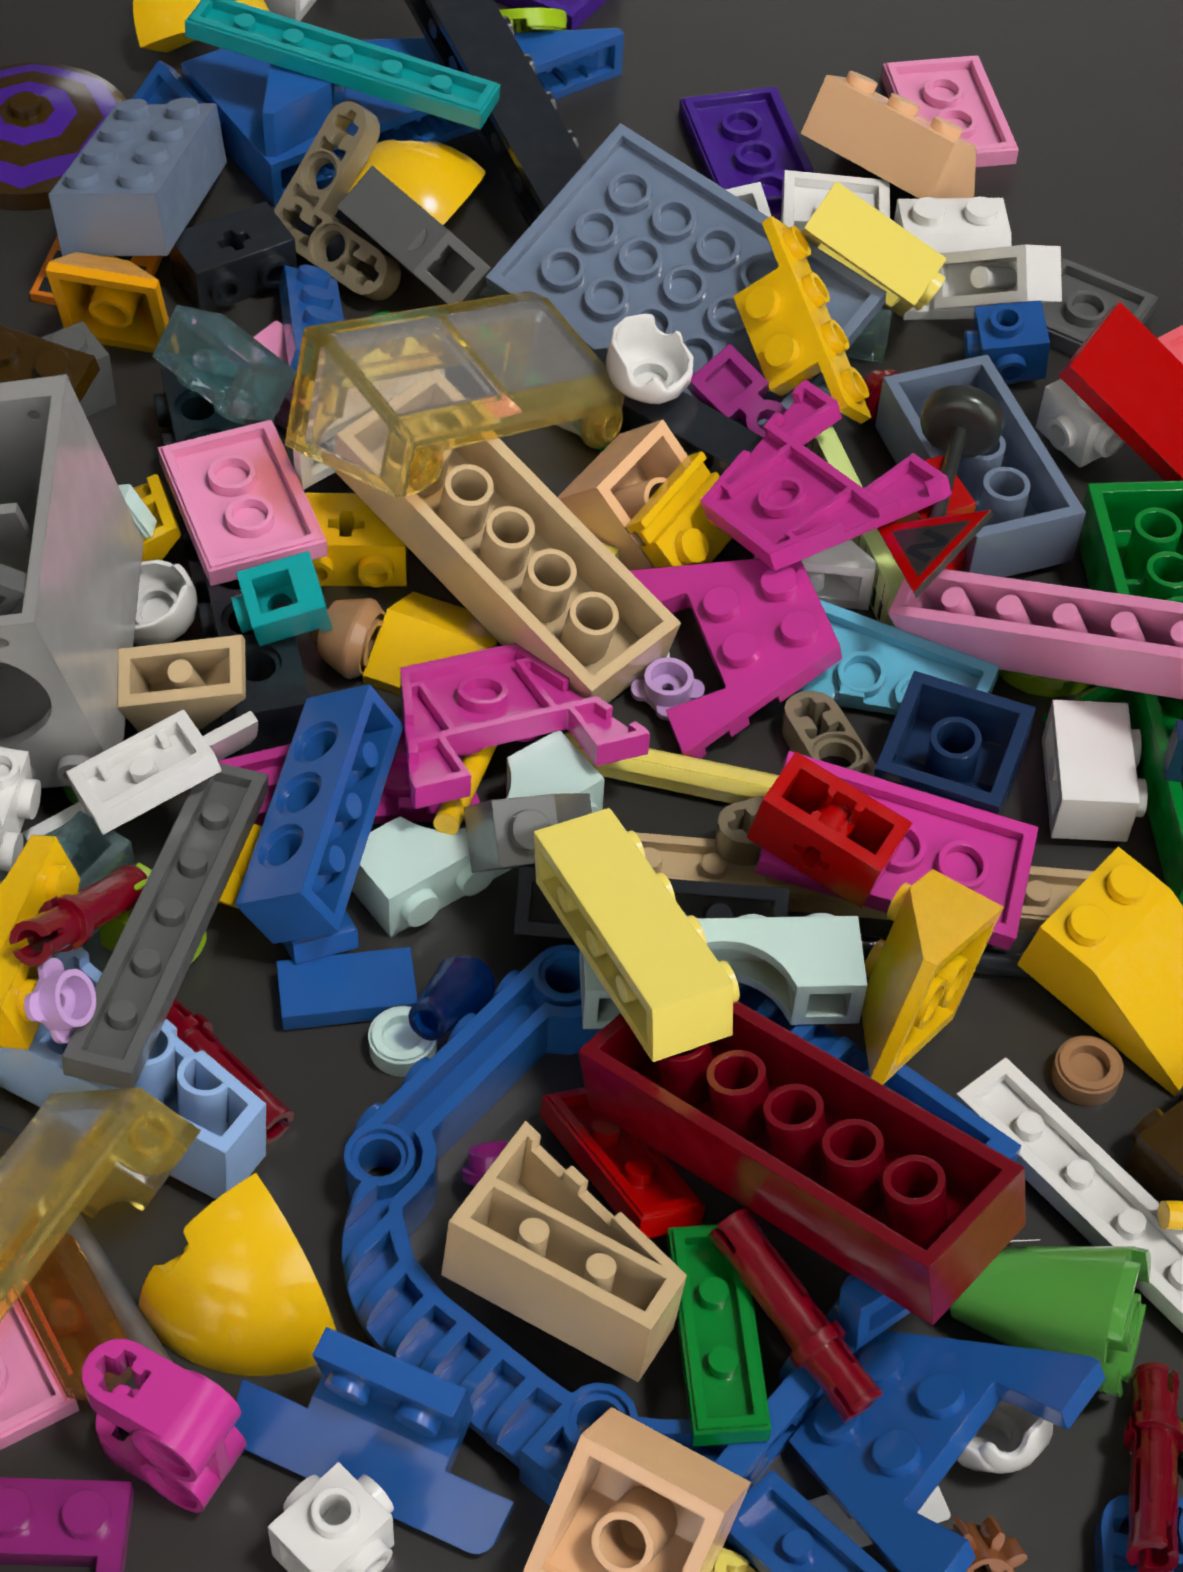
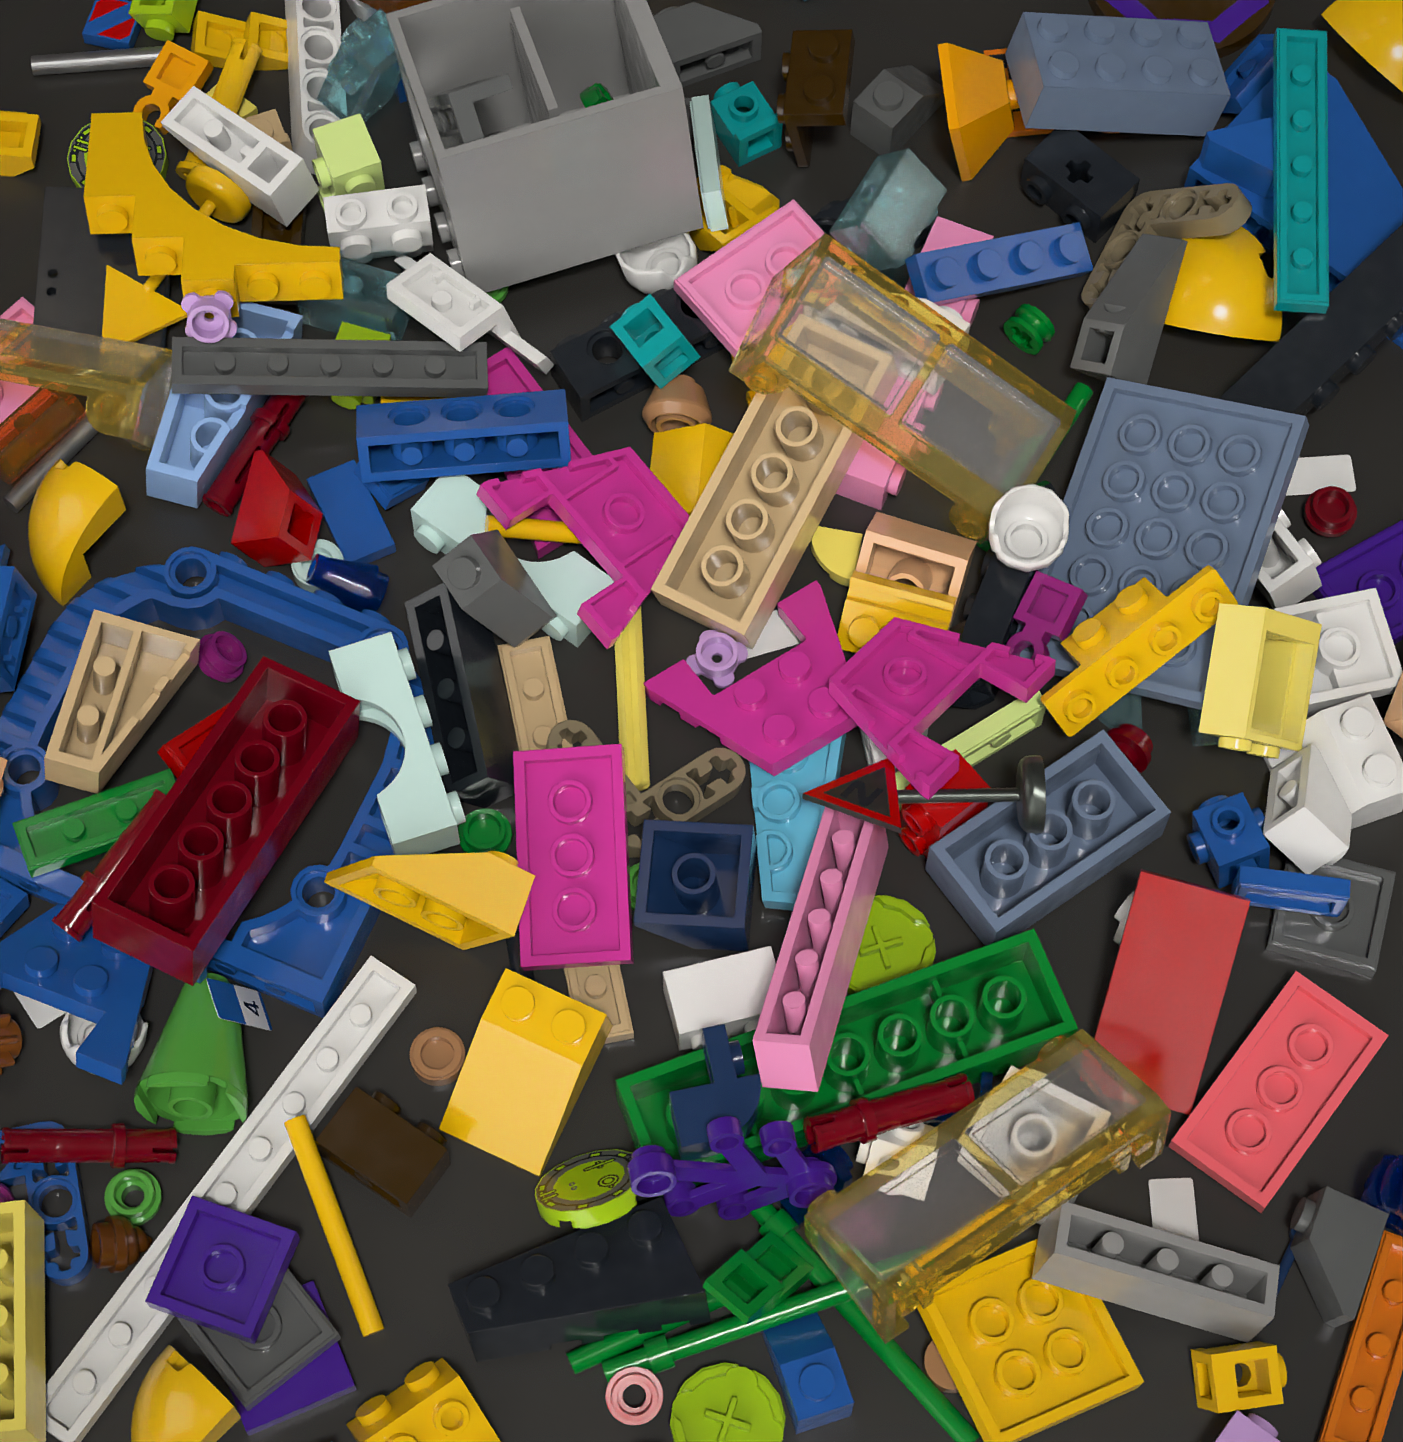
camera: 75 degrees right, 15 degrees up
(70, 919) = (272, 297): dark red pin -> none
(190, 675) = (562, 296): tan slope -> none
(329, 1047) = (276, 515): none -> red slope
(635, 934) = (362, 658): light yellow brick -> none
(828, 829) = (527, 782): red brick -> none
(1079, 312) = (1292, 891): none -> blue tile

